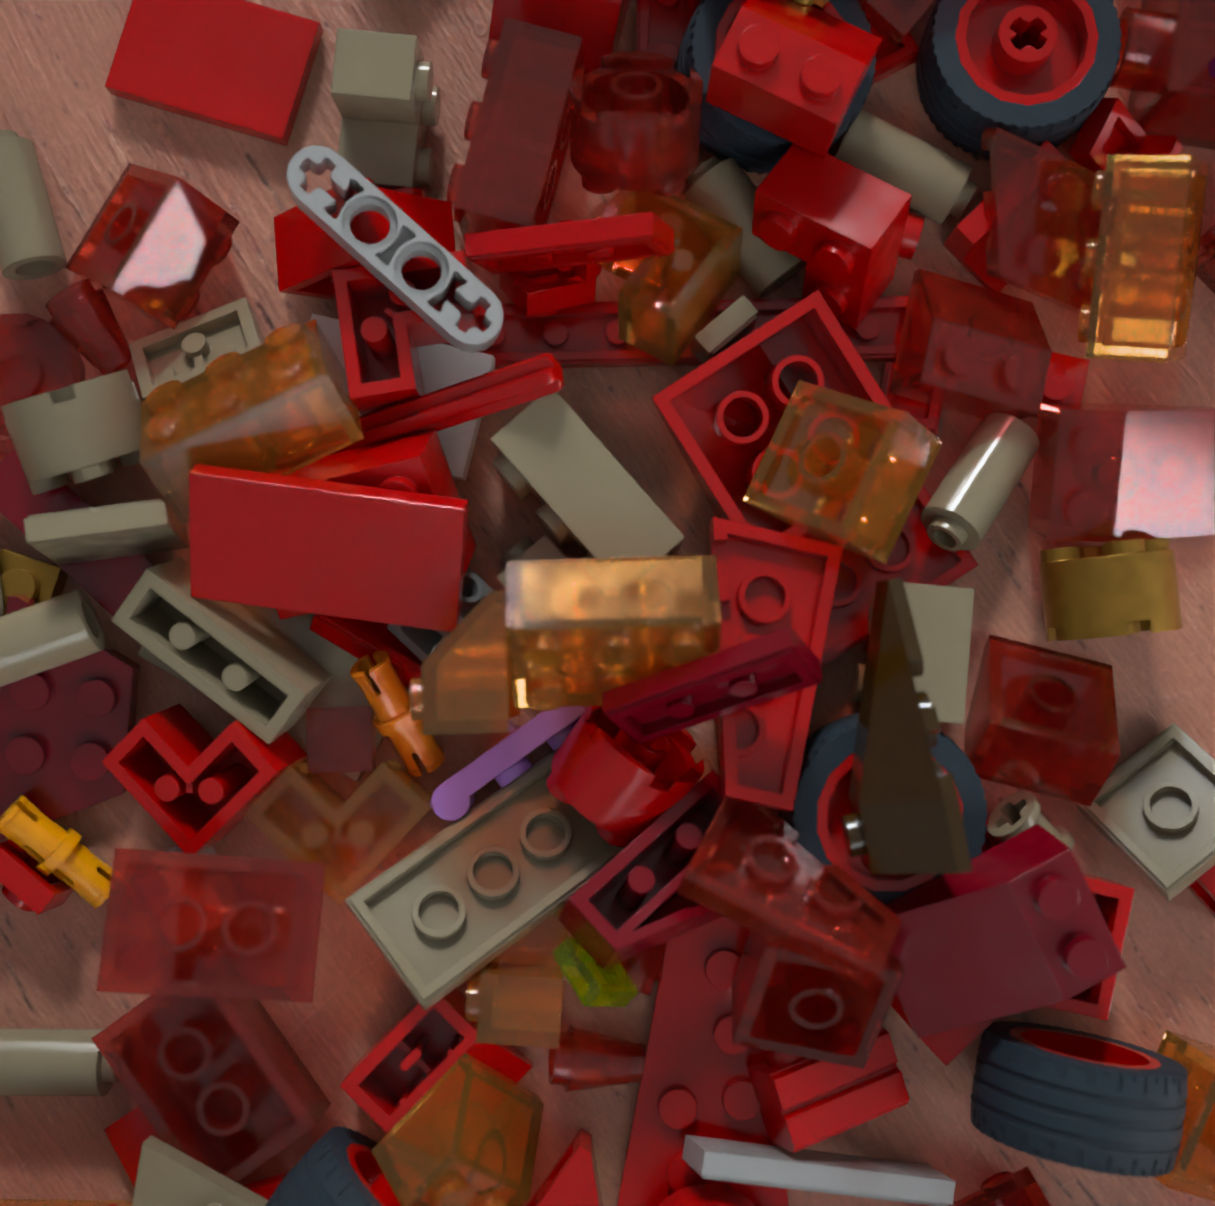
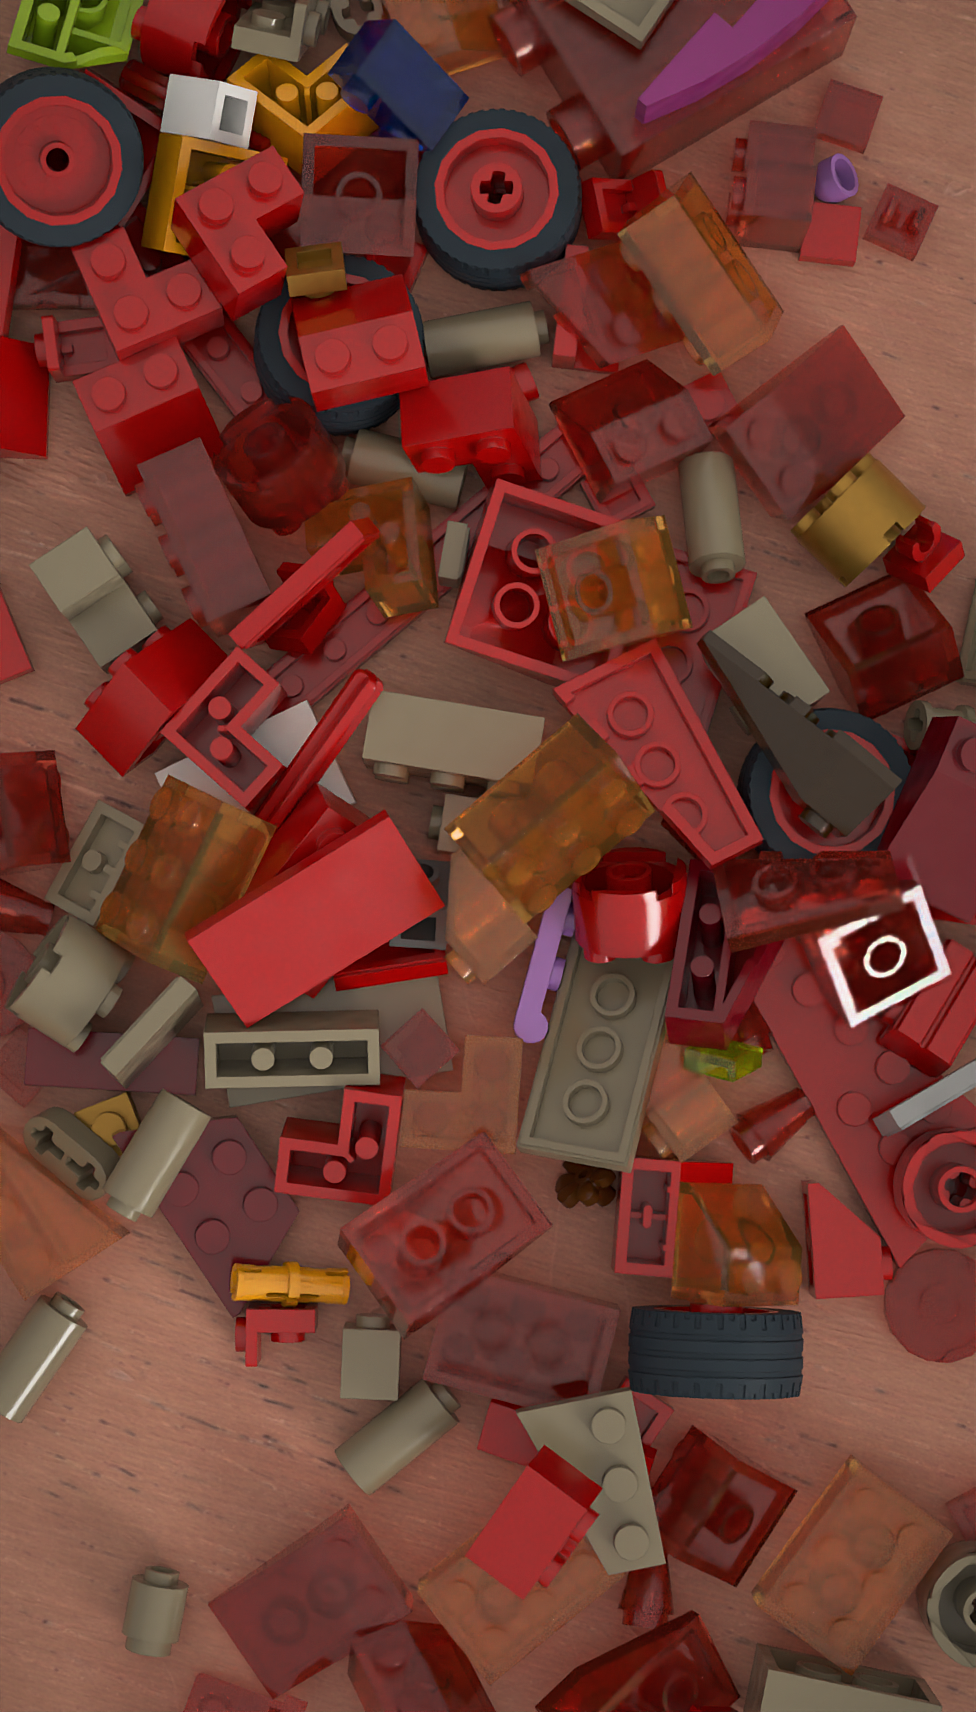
camera: 45 degrees left, 0 degrees up
(66, 979) = (370, 1358): none -> dark tan brick
(380, 982) = (586, 1185): none -> reddish brown plant
(392, 713) = (445, 998): orange pin -> none
(401, 244) = (196, 673): light grey beam -> none
(713, 686) = (645, 800): dark red tile -> none
(1140, 668) = (923, 555): none -> red tile

